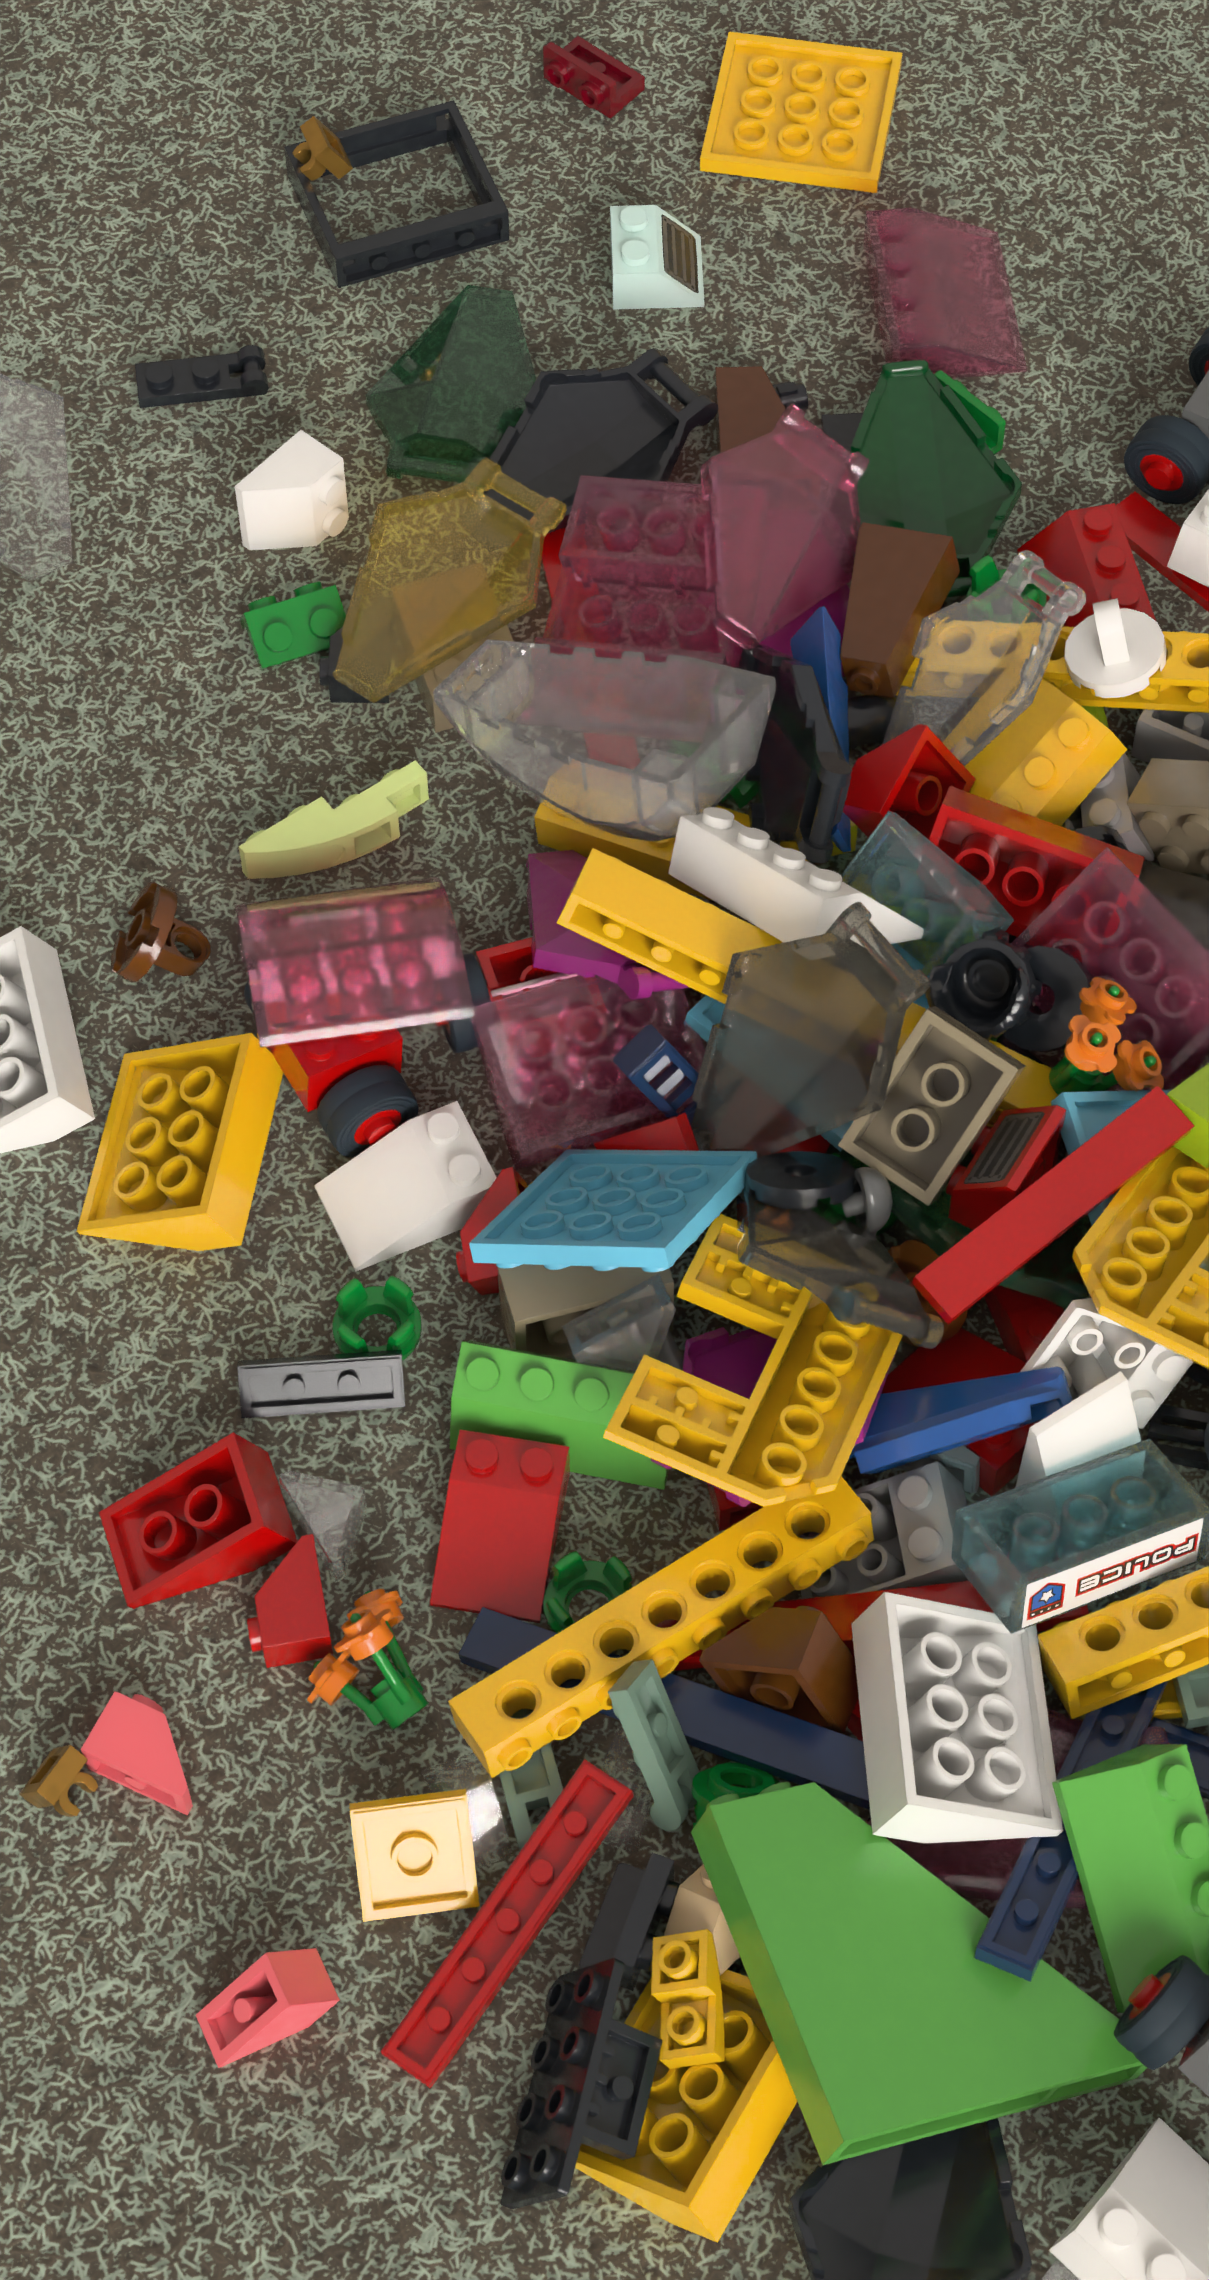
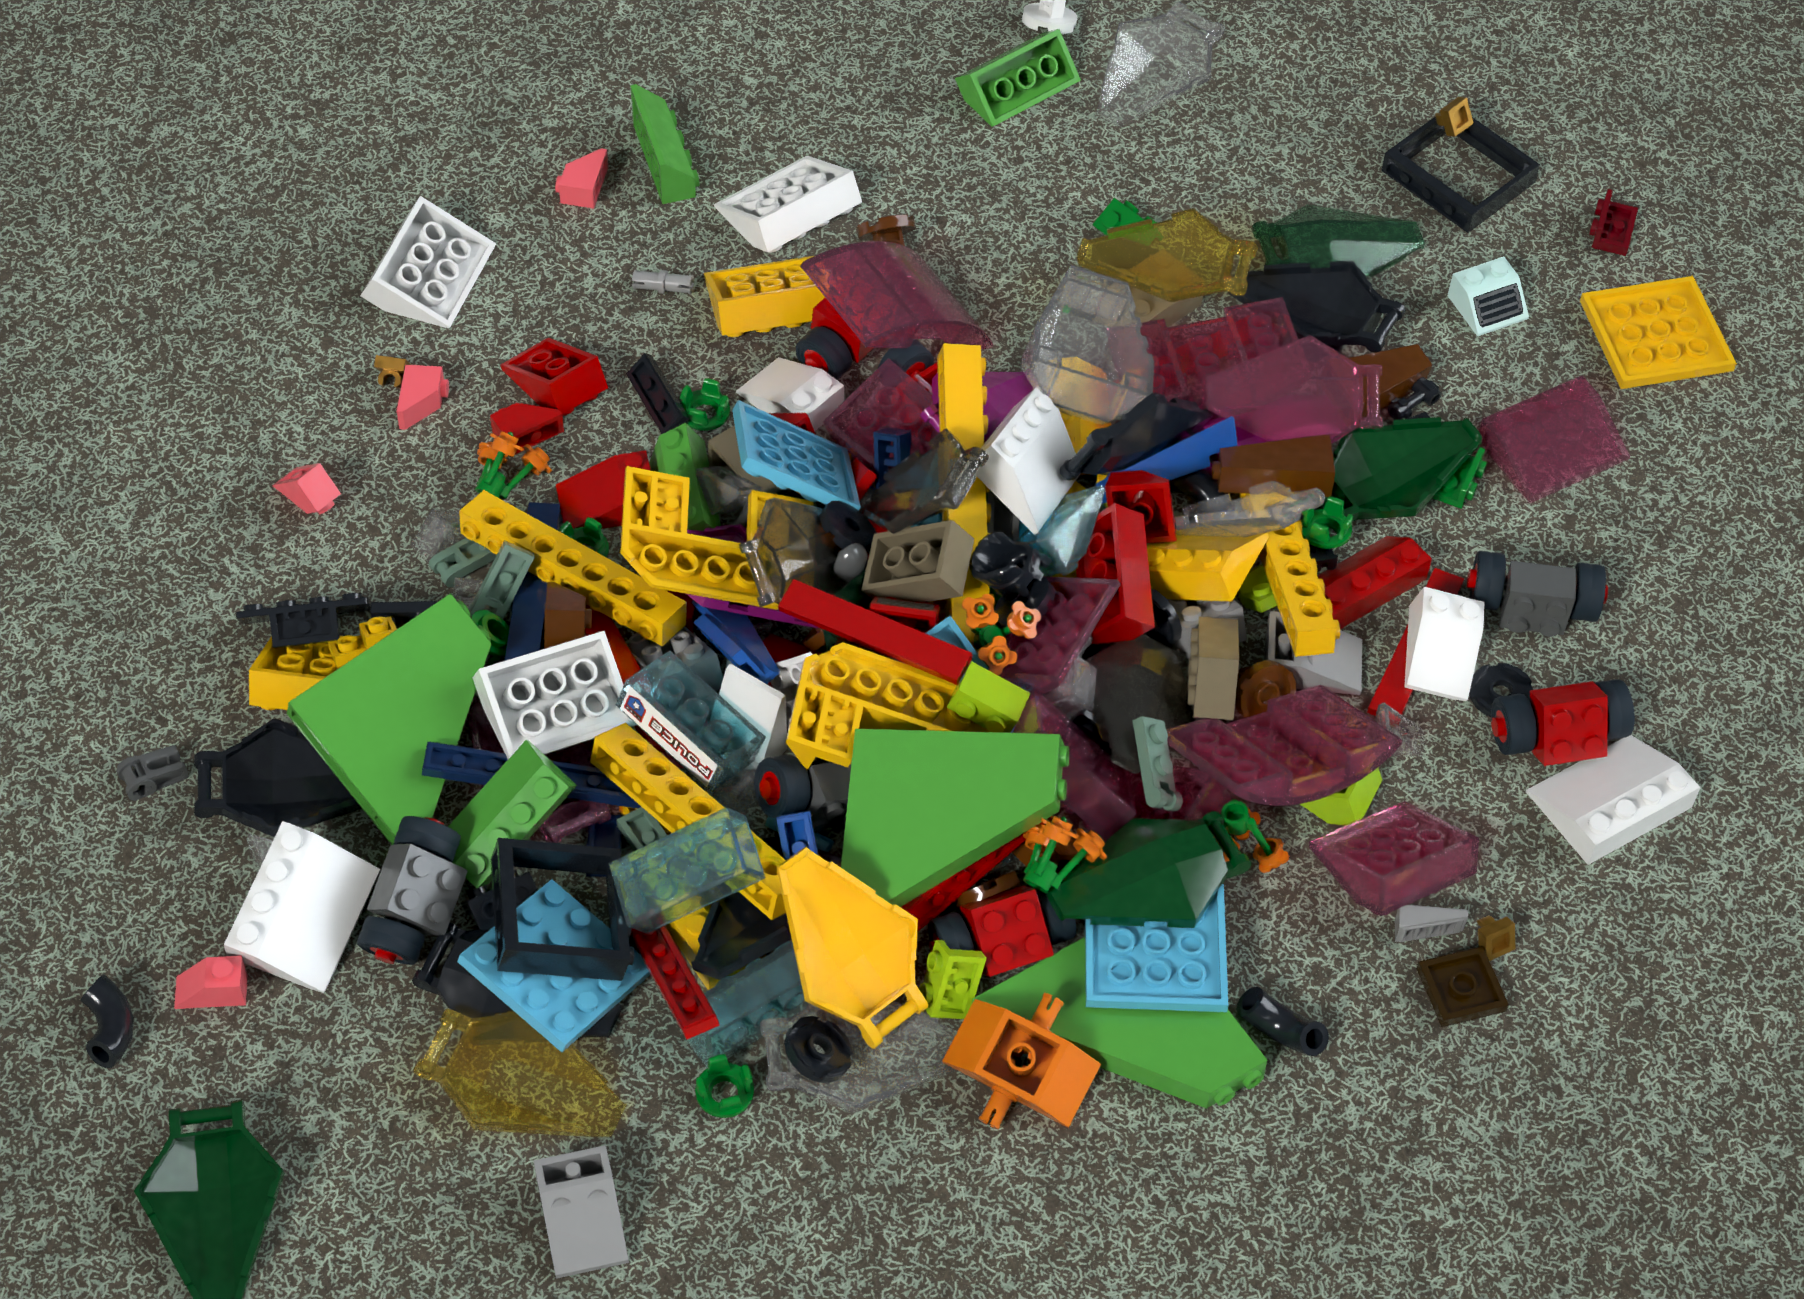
camera: 65 degrees right, 5 degrees down
(72, 1294) = (663, 282): none -> light grey pin
(202, 378) = (1275, 133): black plate -> none
(293, 497) = (1204, 186): white slope -> none
(324, 837) = (994, 285): yellowish green slope -> none
(329, 1512) = (577, 424): clear slope -> none
(414, 1855) = (405, 515): tile -> none
(507, 1924) = (387, 567): red tile -> none
(1115, 650) = (1292, 566): white tile -> none

